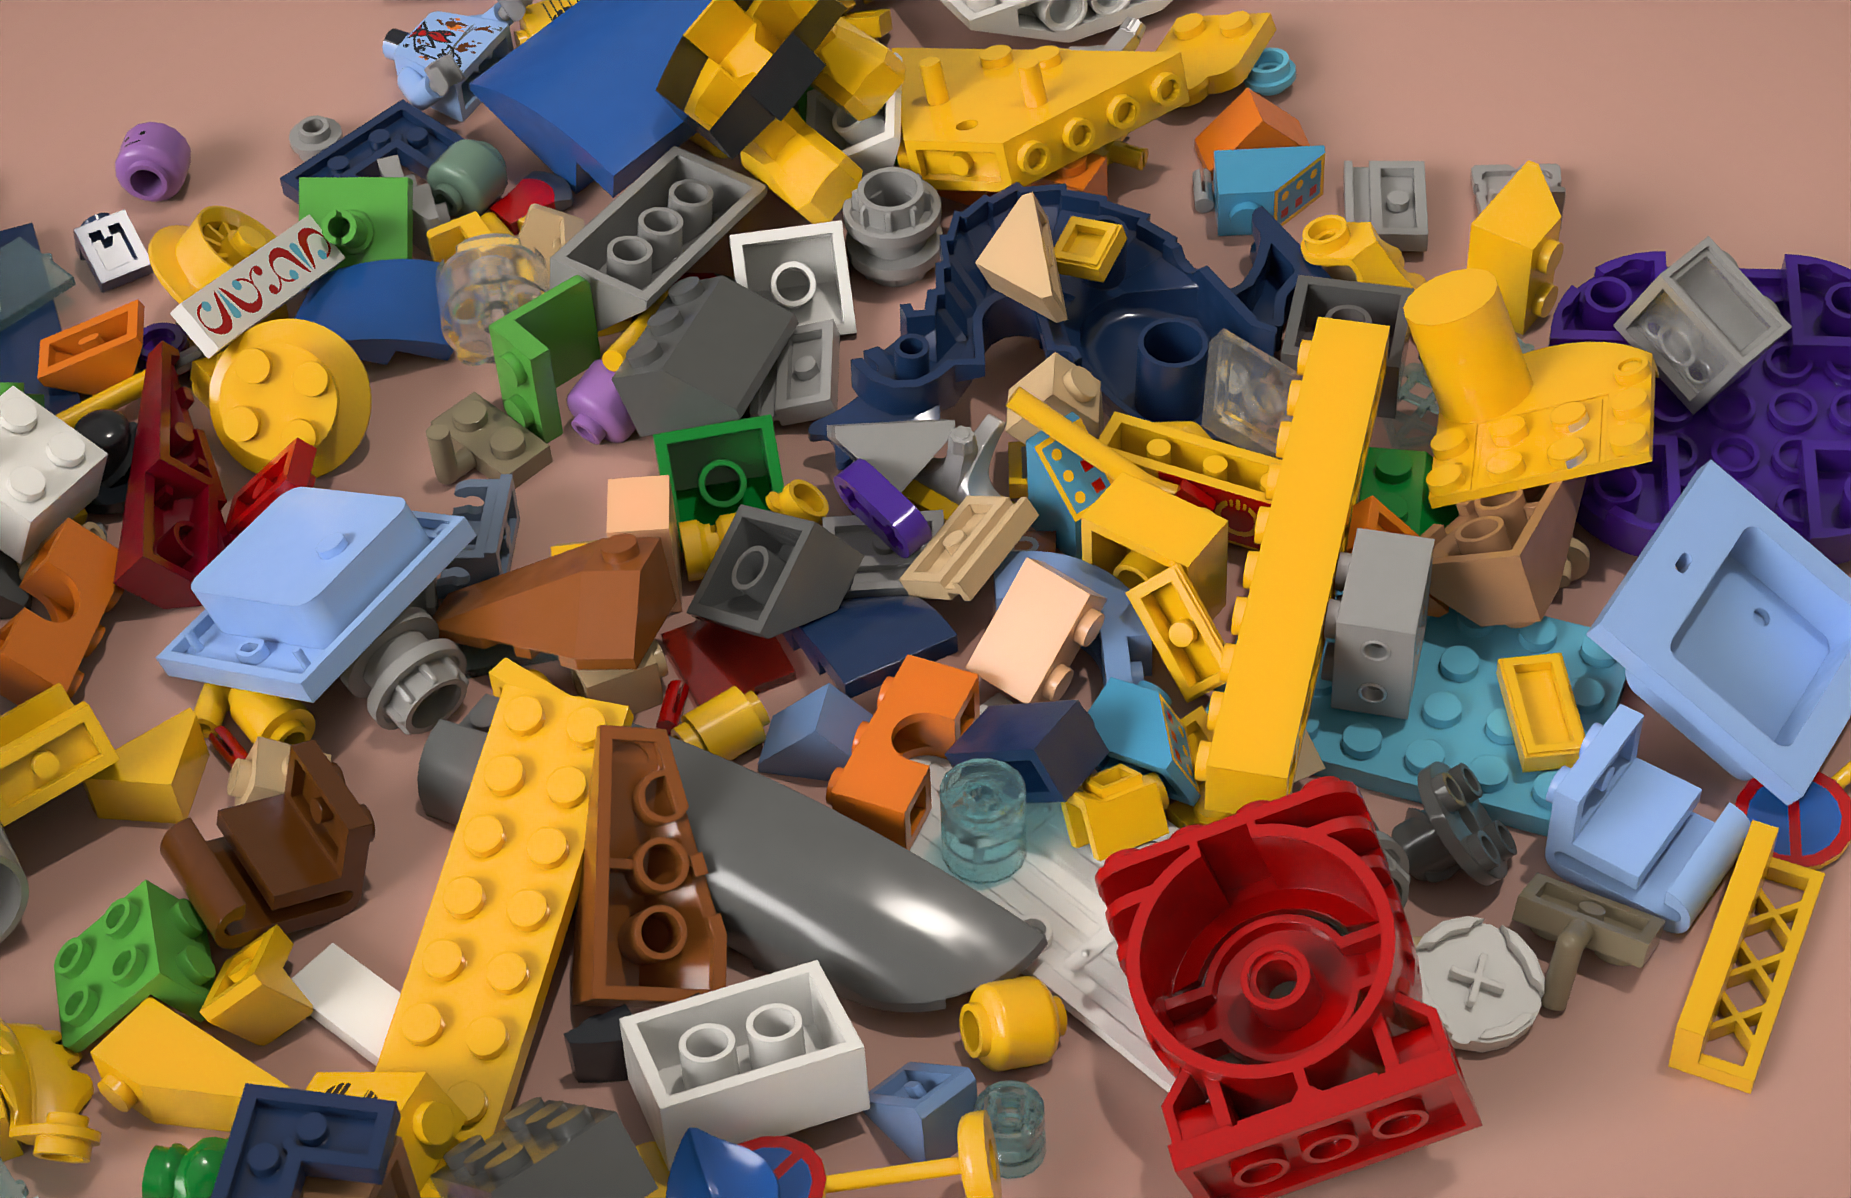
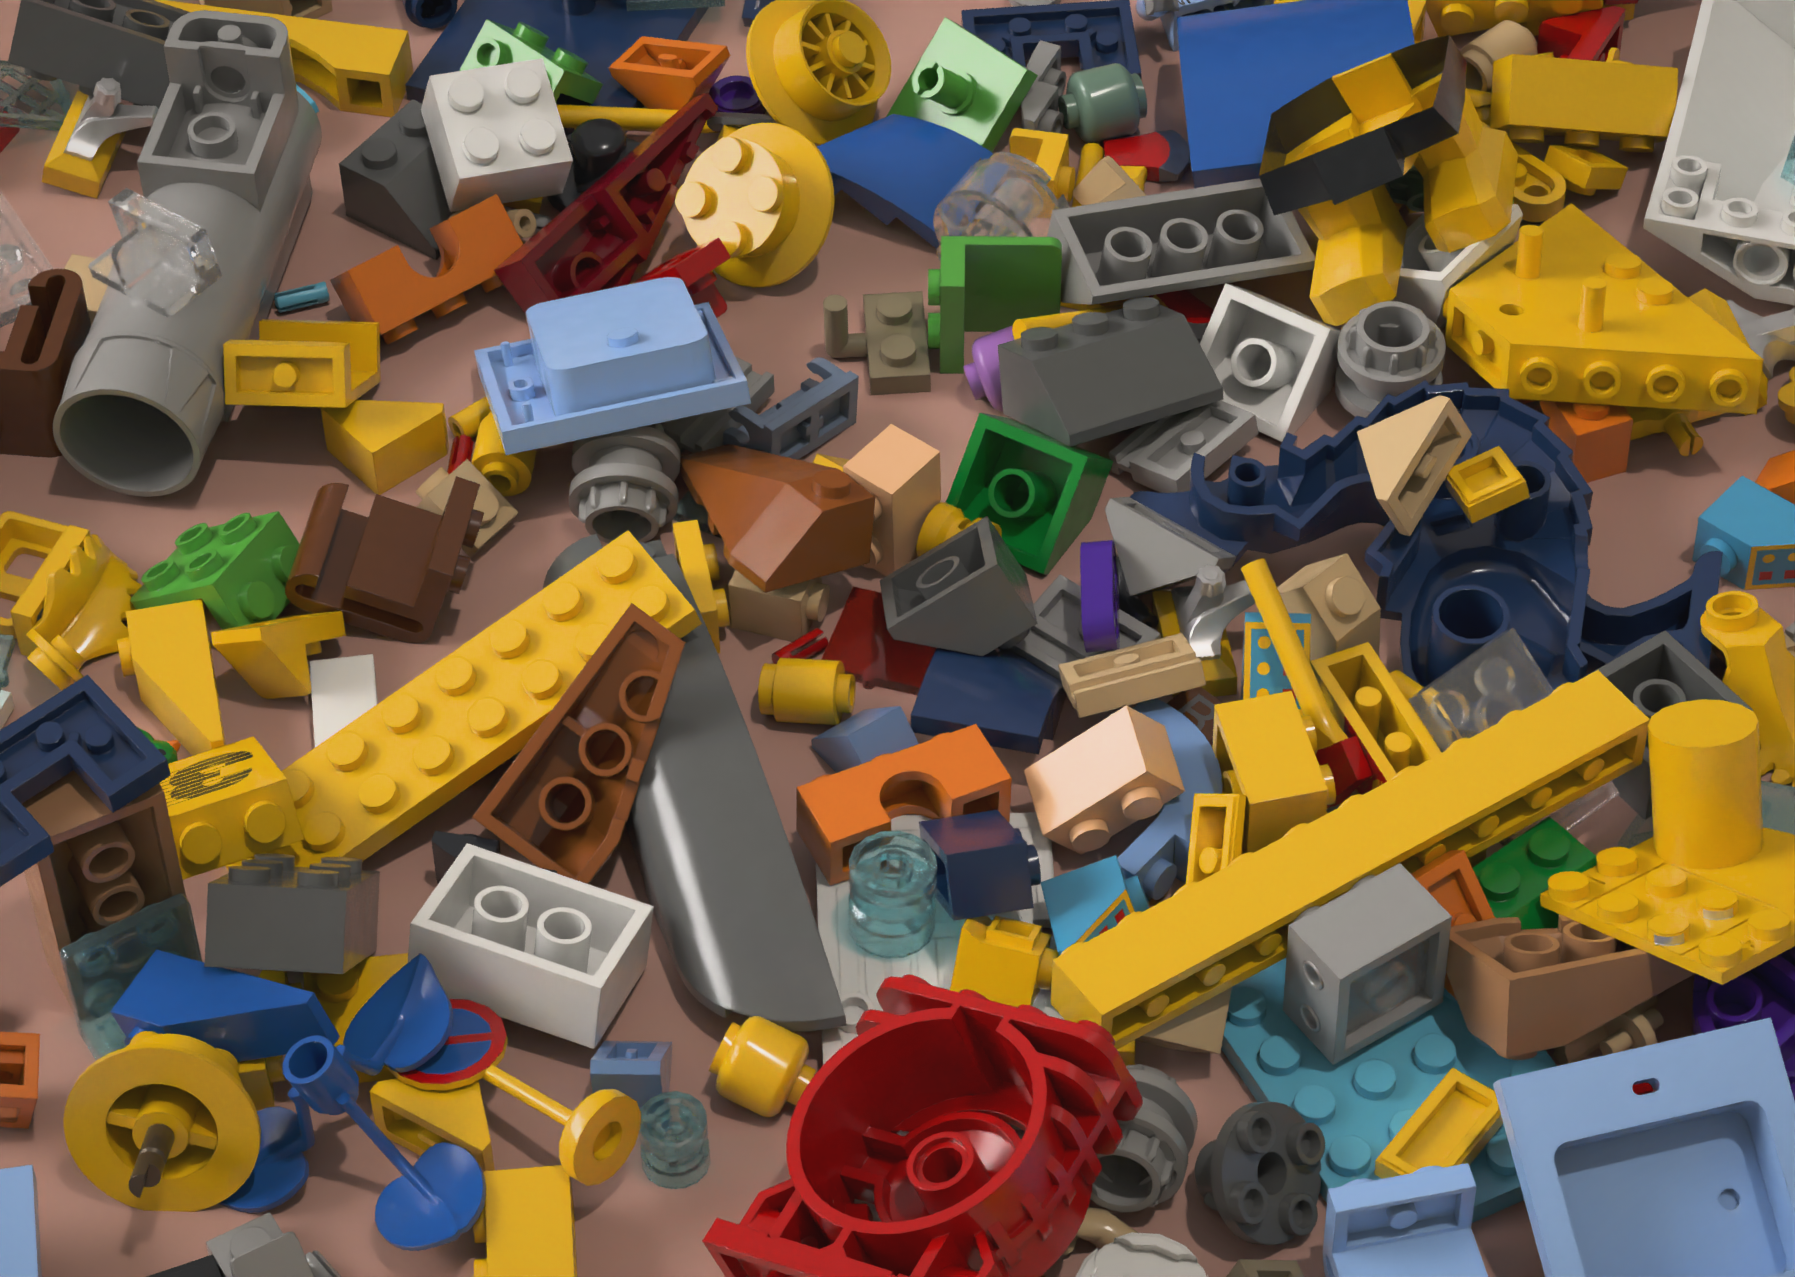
camera: 40 degrees right, 0 degrees up
(257, 286) = (812, 91): white tile -> none
(800, 501) = (1060, 545): yellow plate -> none

